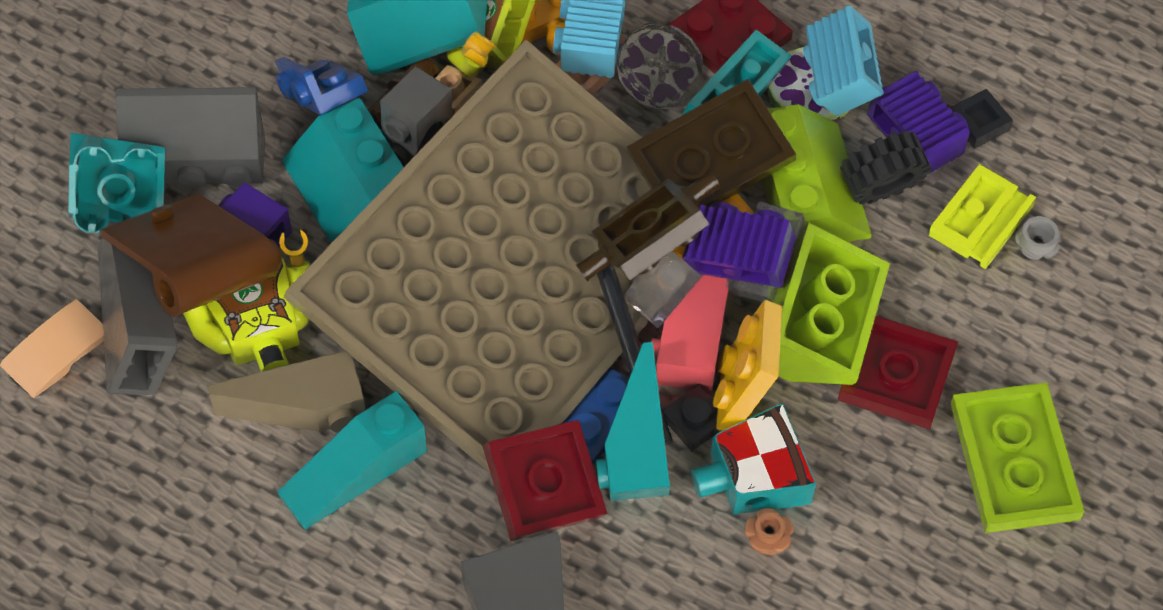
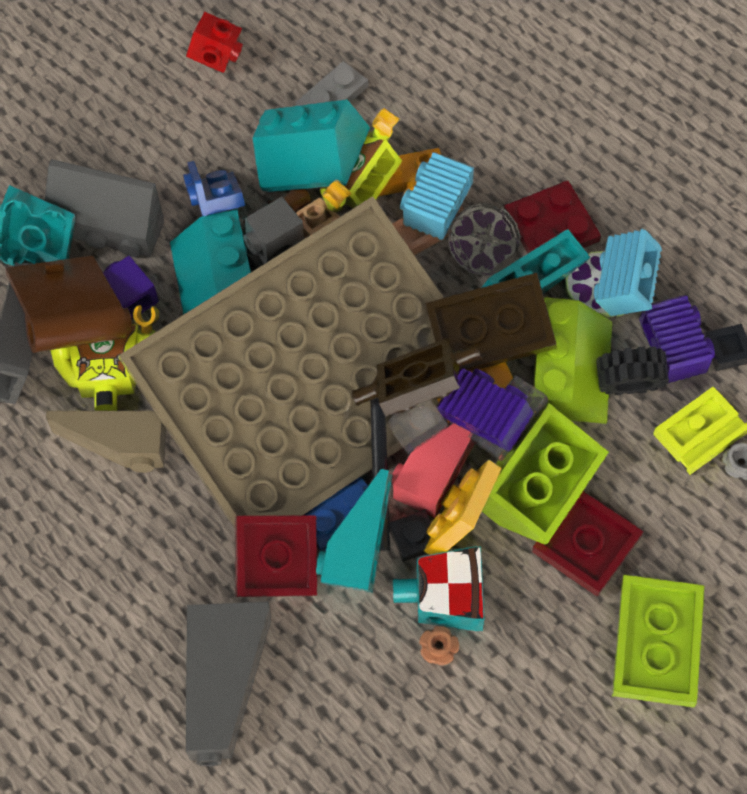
camera: 20 degrees right, 5 degrees up
(355, 460) = (140, 499): teal slope -> none

